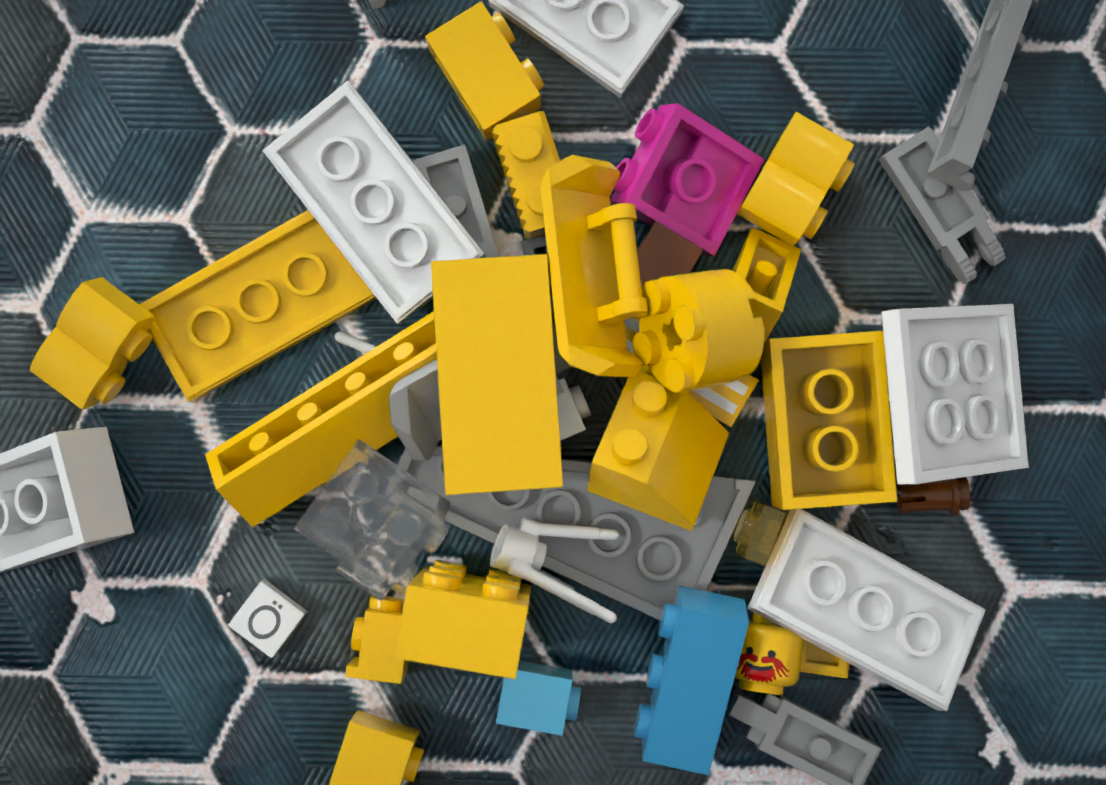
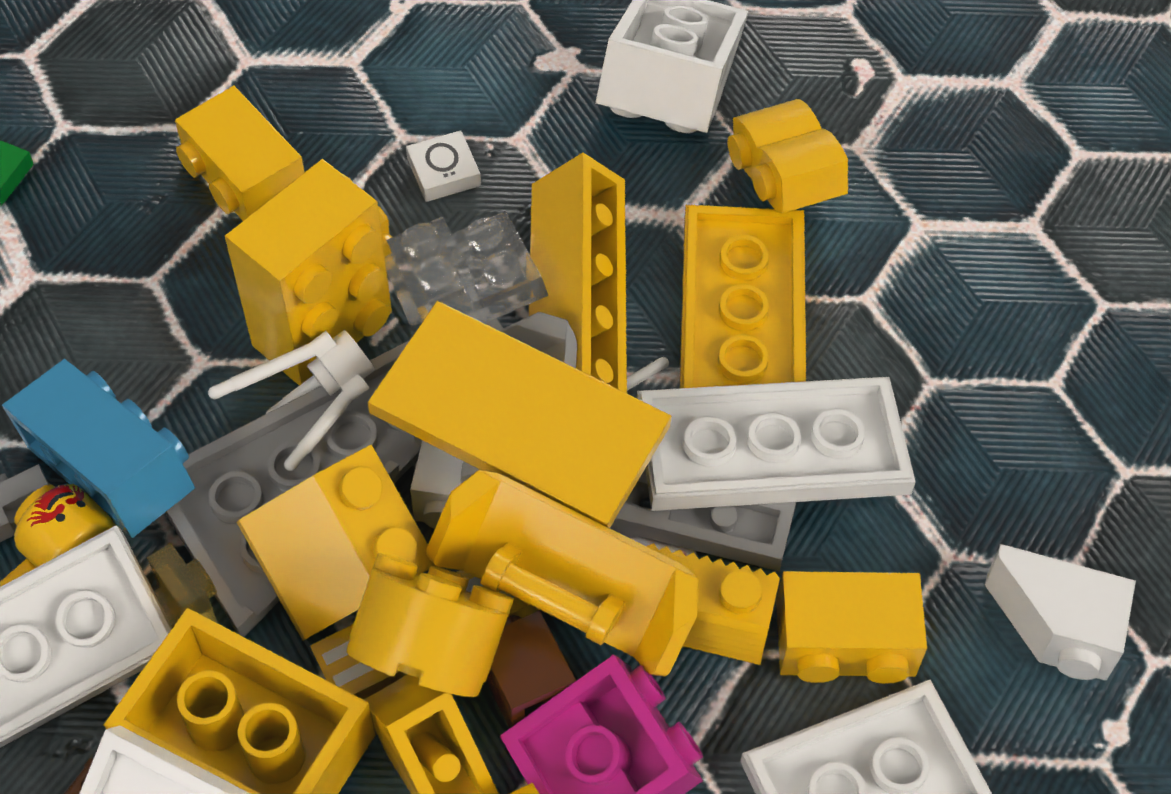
camera: 120 degrees right, 30 degrees down
(539, 699) = (197, 320): medium azure brick -> none

